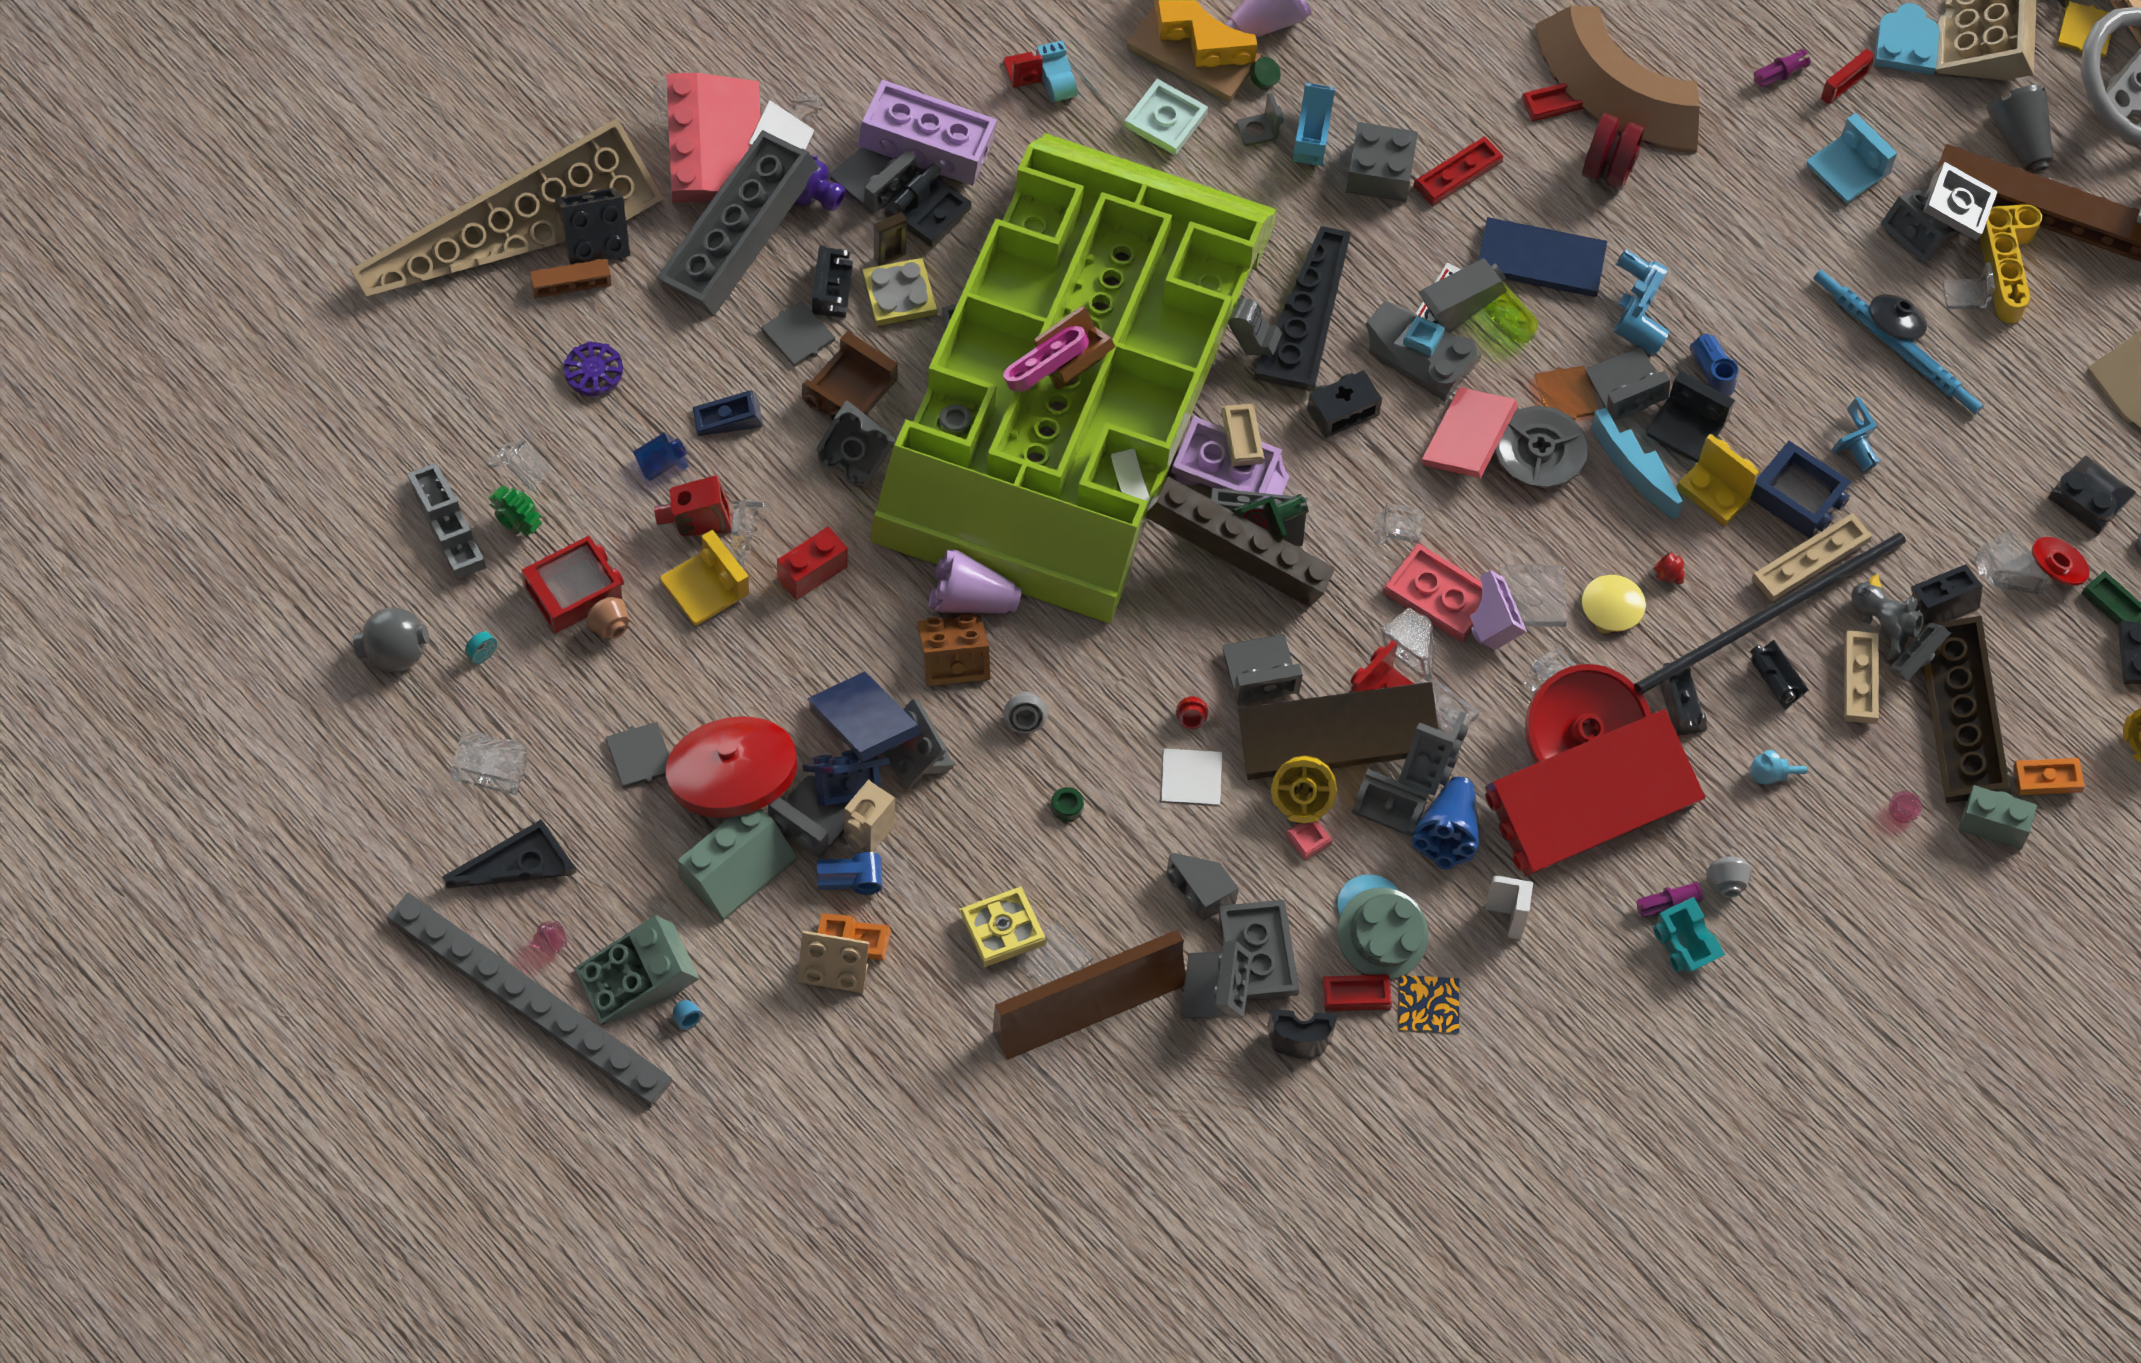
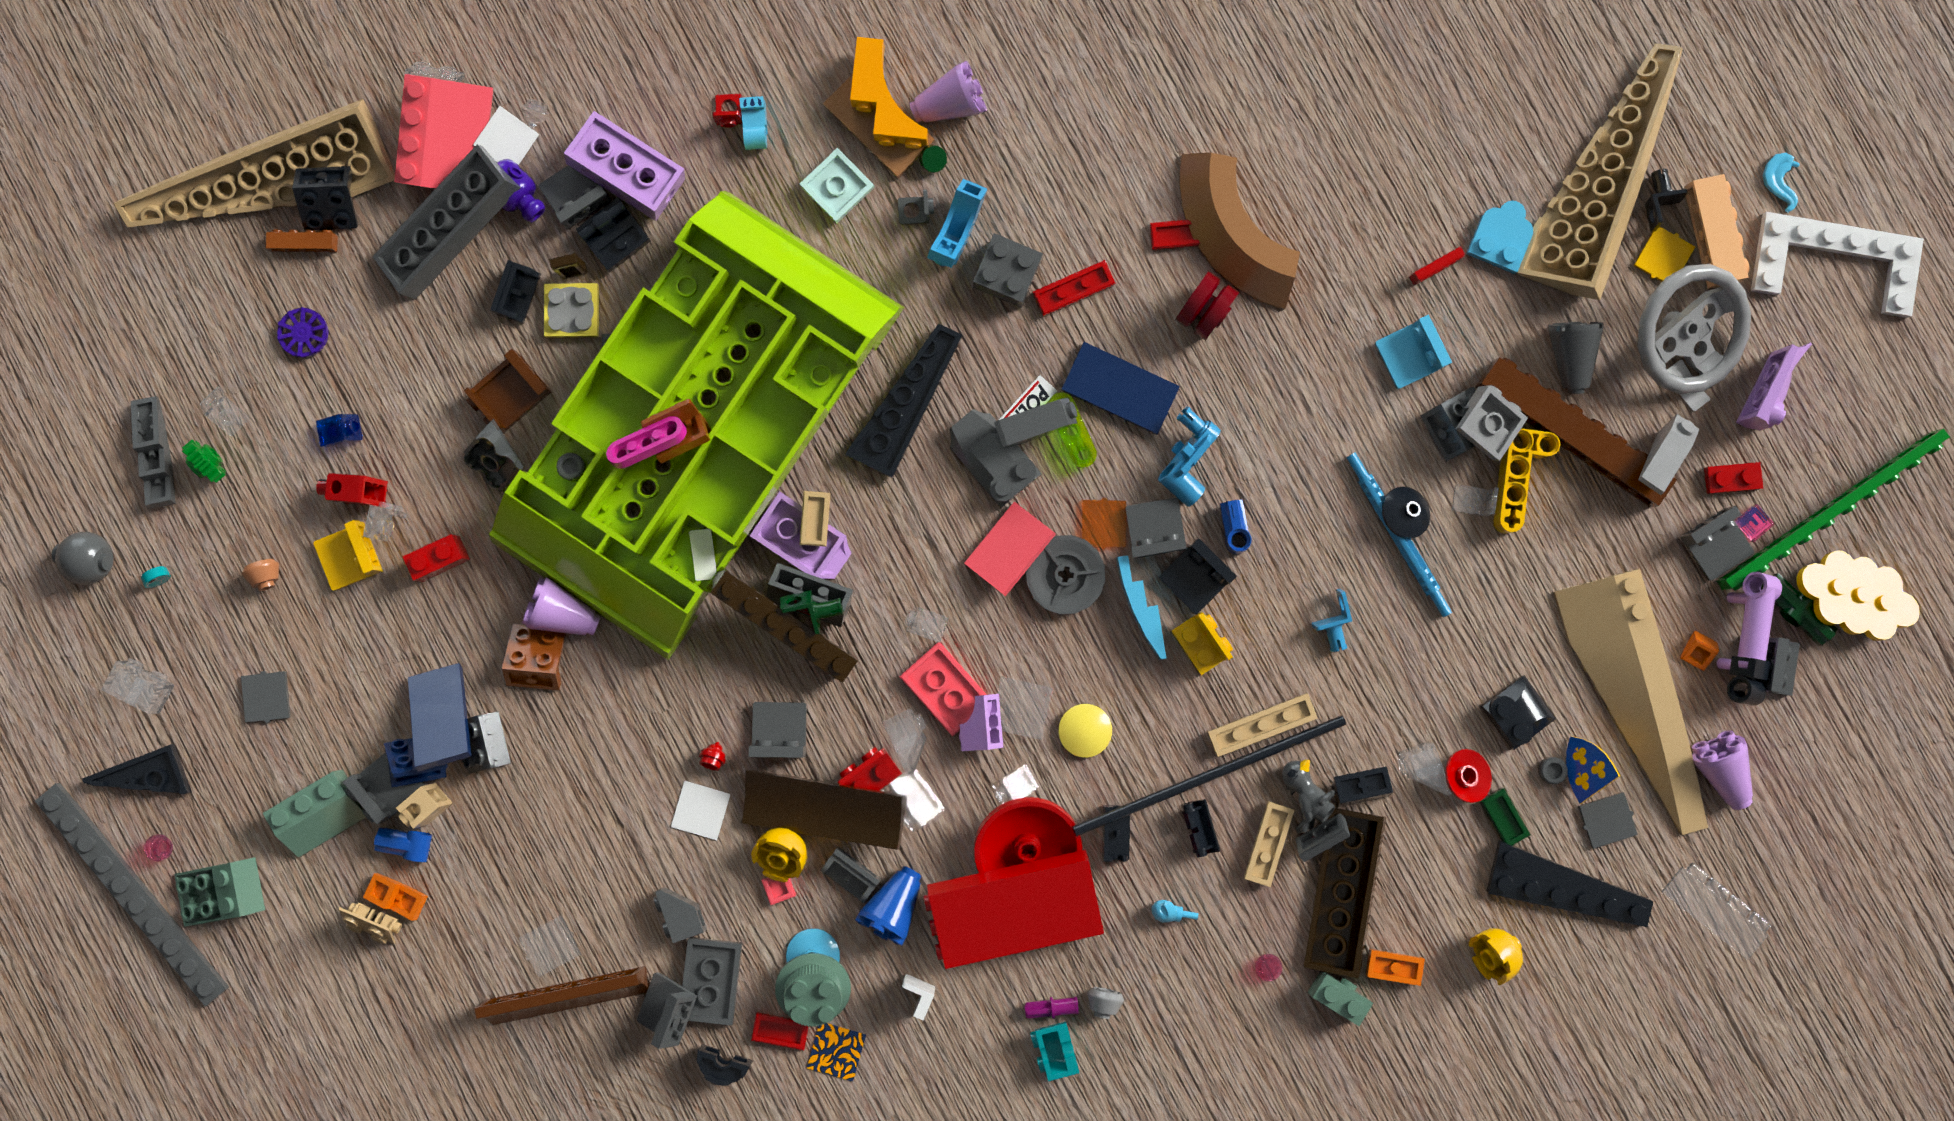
camera: 20 degrees right, 25 degrees up
(571, 582) = (239, 535): window -> none
(686, 1014) = (249, 935): dark azure hinge -> none
(728, 414) = (404, 399): dark blue slope -> none
(731, 766) = (326, 735): red dish -> none
(798, 333) = (479, 332): dark grey piece -> none
(1002, 926) = (512, 917): light yellow piece -> none
(1025, 713) = (576, 730): light grey cone -> none
(1067, 804) = (593, 815): dark green tile -> none
(1252, 329) = (850, 420): dark grey leg -> none
(1344, 403) = (901, 509): black brick -> none
(1423, 336) = (993, 453): medium azure tile -> none
(1433, 756) = (883, 861): dark grey bracket -> none
(1670, 569) = (1140, 709): red plate -> none
(1781, 68) = (1382, 244): magenta axle -> none
(1801, 490) = (1272, 662): dark blue window -> none

